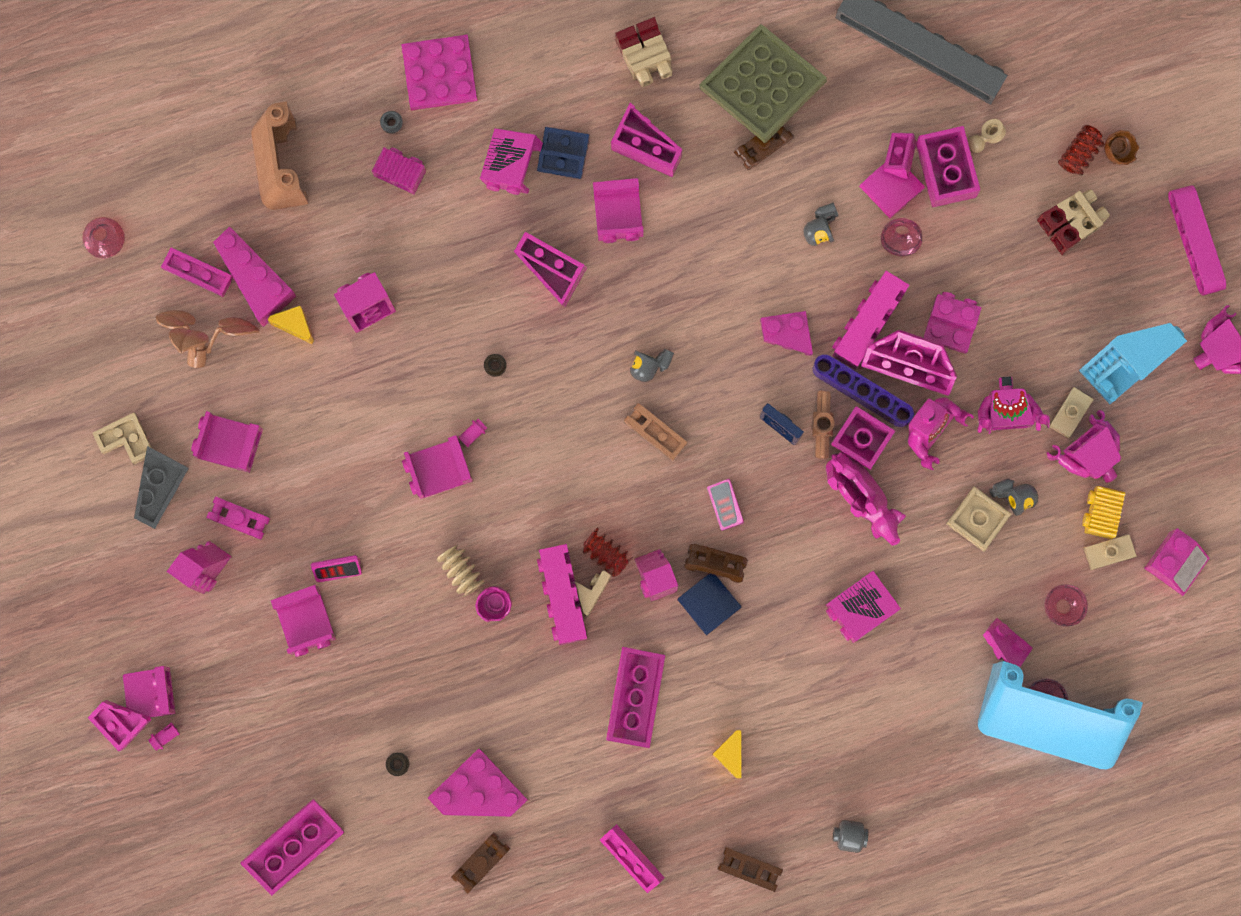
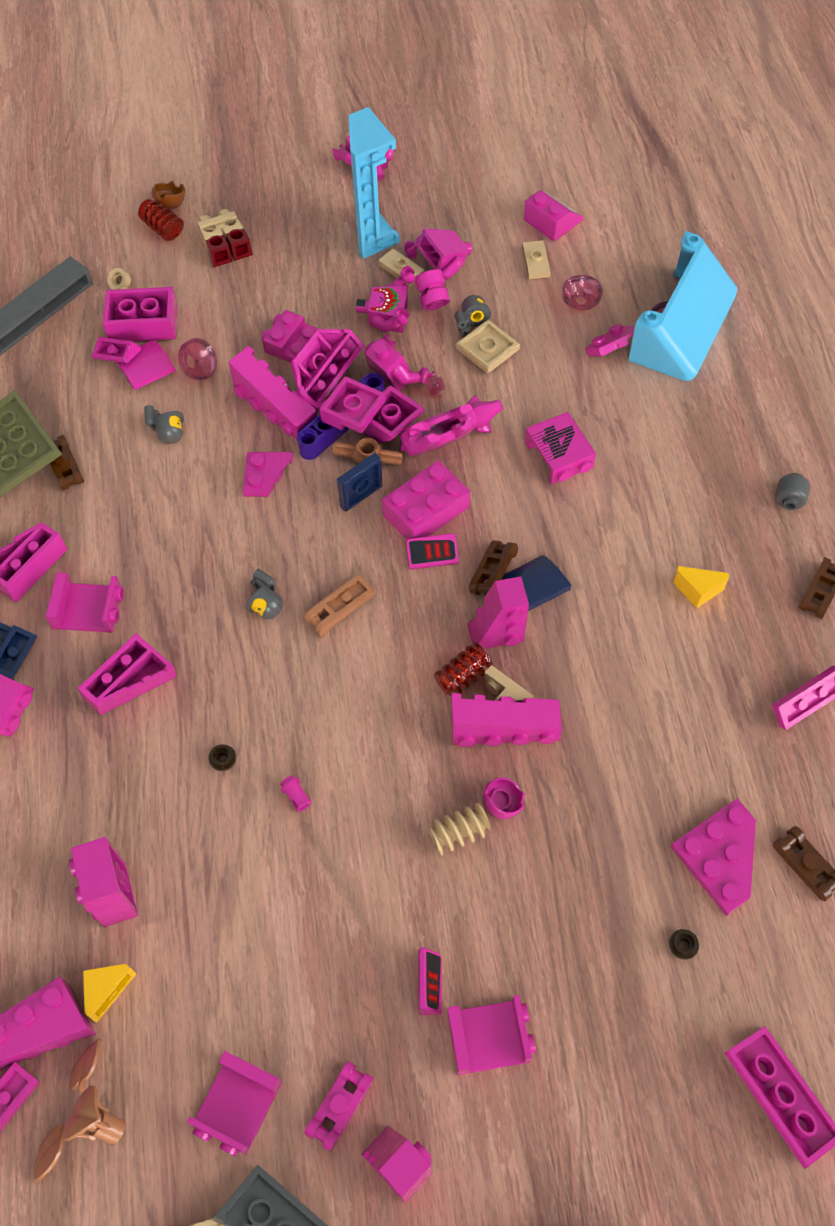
camera: 80 degrees left, 20 degrees down
(437, 468) = (328, 838): dark pink panel -> none
(635, 697) = (630, 666): dark pink slope -> none
(774, 489) = (426, 502): none -> dark pink brick
(859, 399) = (351, 405): none -> dark pink plate
(918, 474) = (435, 384): none -> clear pink plate
(1036, 450) = (431, 286): none -> dark pink wheel
(1104, 512) = (499, 254): yellow brick -> none
(1197, 240) = (268, 159): dark pink beam -> none

